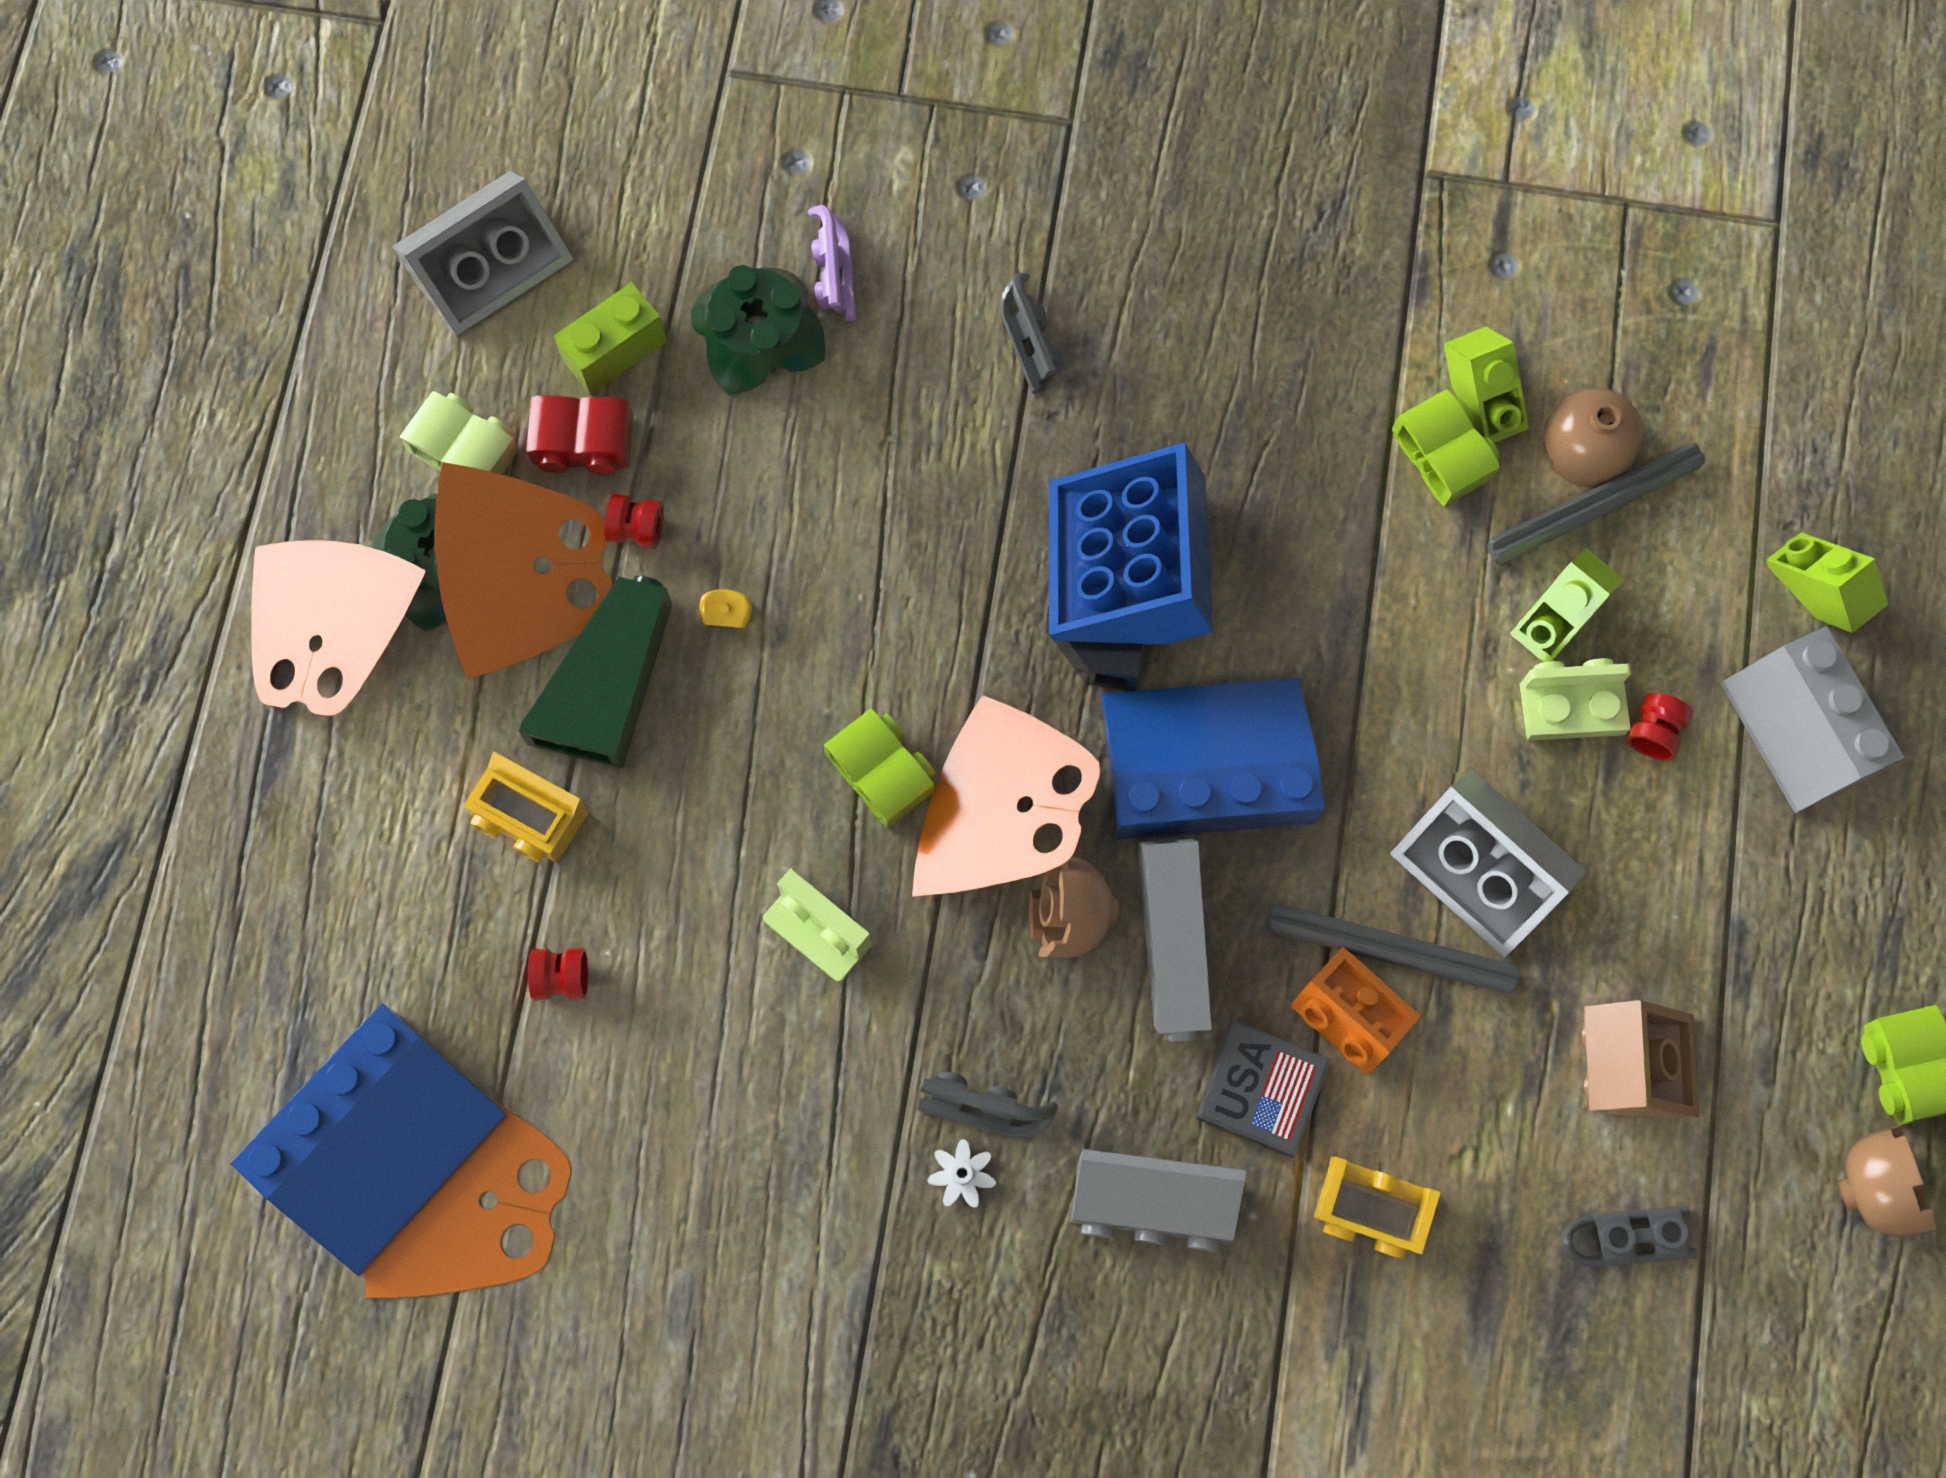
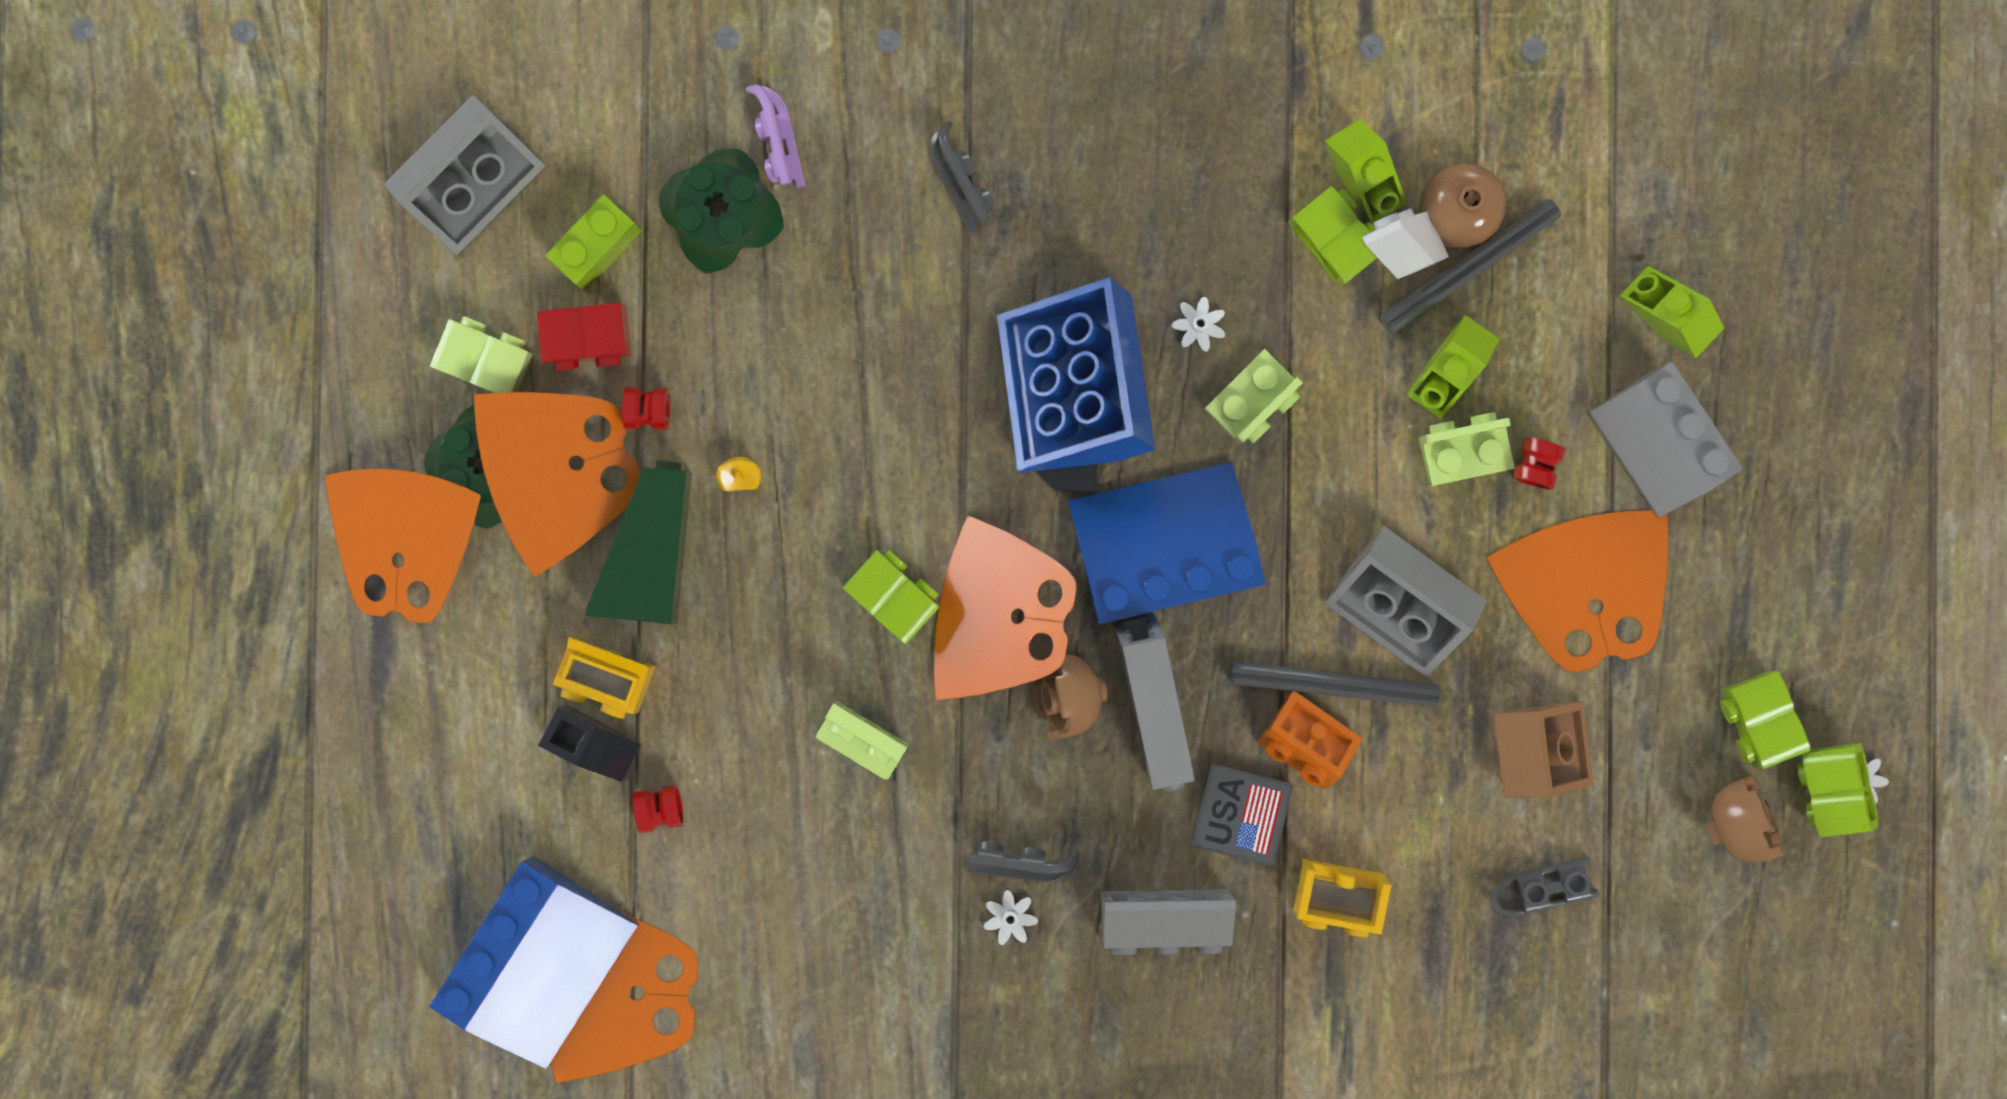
camera: 10 degrees left, 15 degrees up
(492, 881) = (589, 743): none -> black slope
(1278, 530) = (1193, 330): none -> white plant
(1331, 610) = (1253, 397): none -> yellowish green bracket
(1526, 458) = (1406, 243): none -> white slope
(1686, 853) = (1598, 557): none -> orange piece

